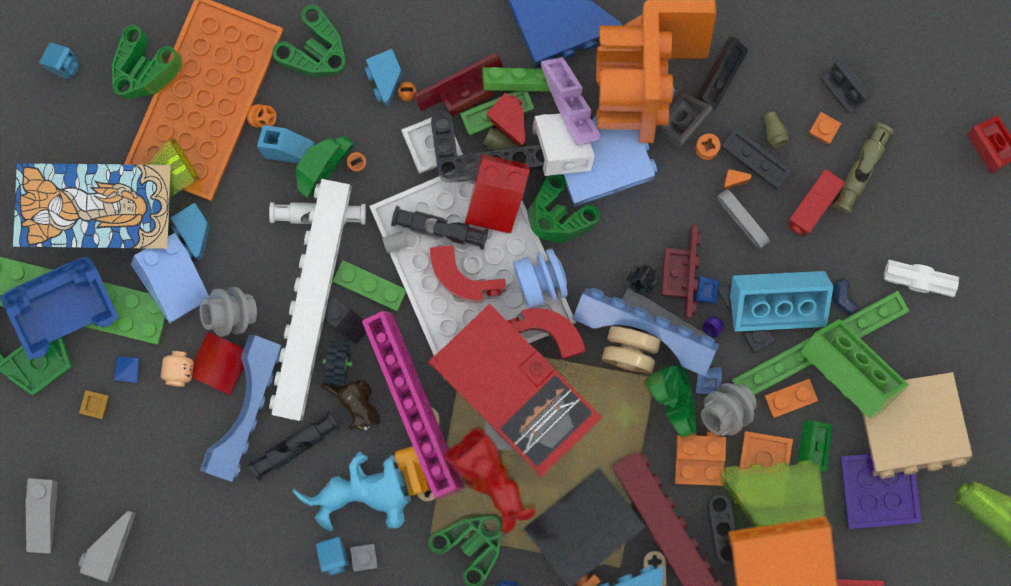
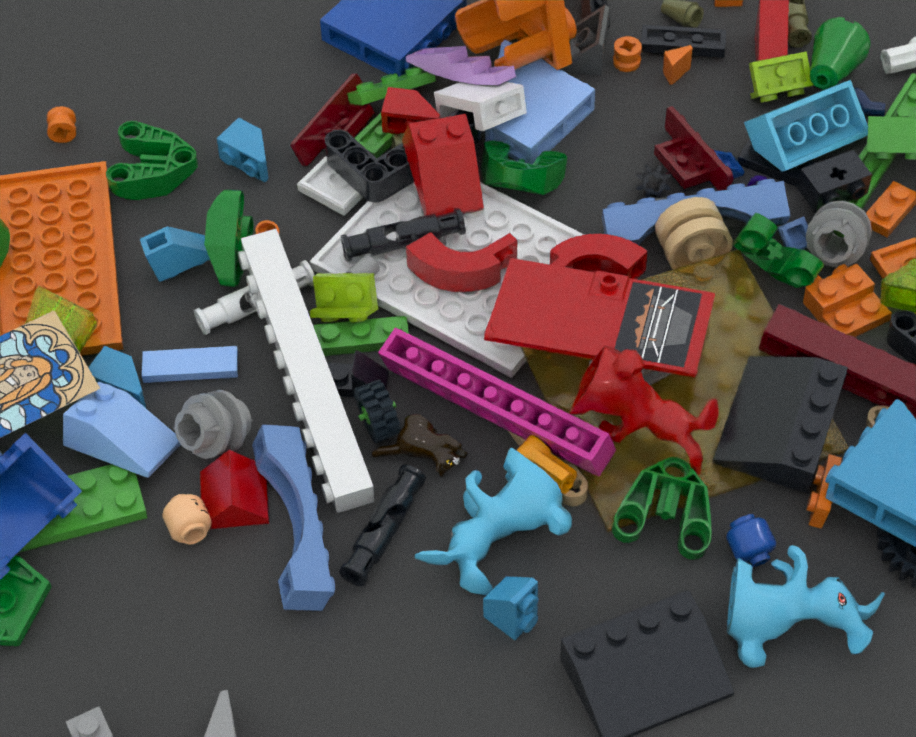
camera: 30 degrees left, 30 degrees down
(94, 404) = (104, 612): pearl gold plate -> none
(127, 369) = (123, 556): blue slope -> none
(247, 241) = (190, 364): none -> light blue tile
(267, 117) = (128, 243): orange wheel -> none
(364, 557) = (553, 597): flat silver plate -> none
(370, 256) = (344, 296): none -> lime bracket
(407, 96) = (279, 156): orange hinge -> none
(540, 278) = (547, 213): light blue wheel -> none
(743, 219) = (700, 94): light grey beam -> none
(774, 357) = (834, 180): none -> black brick
(795, 243) = (780, 75): none -> lime bracket
(845, 251) = (837, 51): none -> green cone

